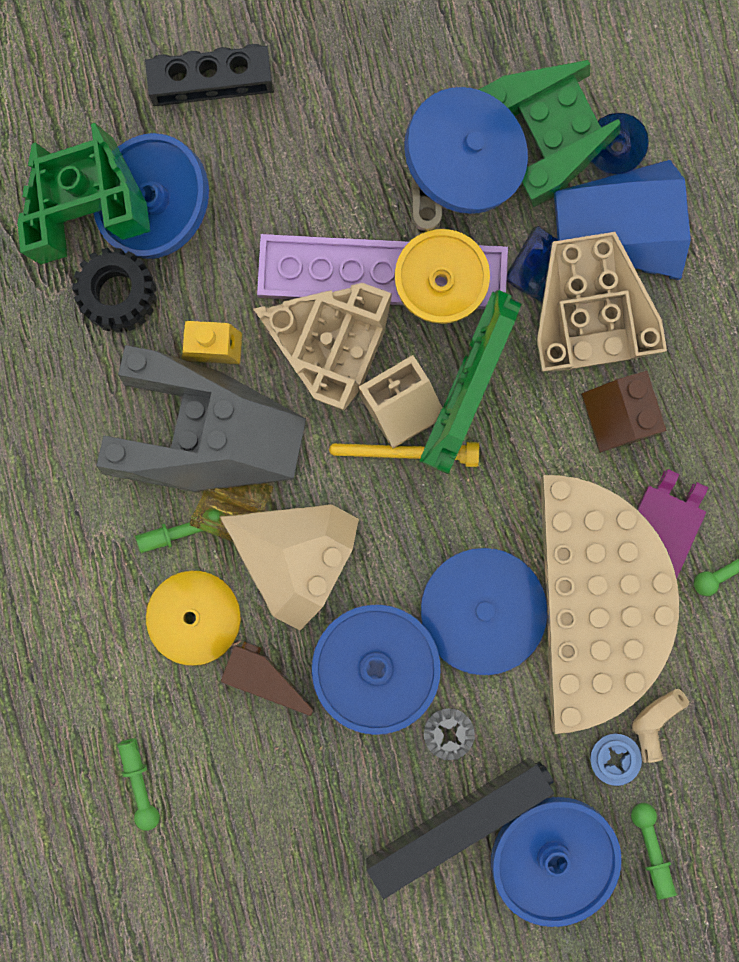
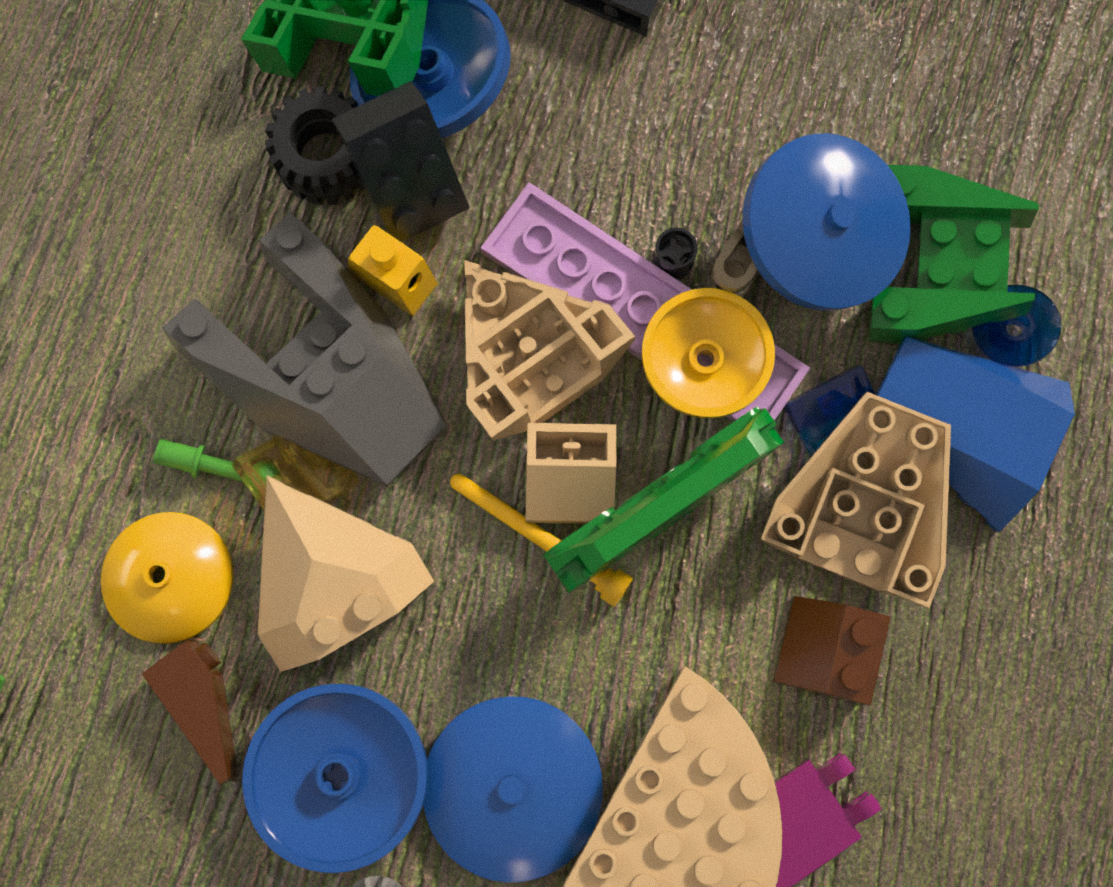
camera: 30 degrees right, 5 degrees down
(177, 270) = (402, 161): none -> black brick
(380, 219) = (675, 244): none -> black wheel

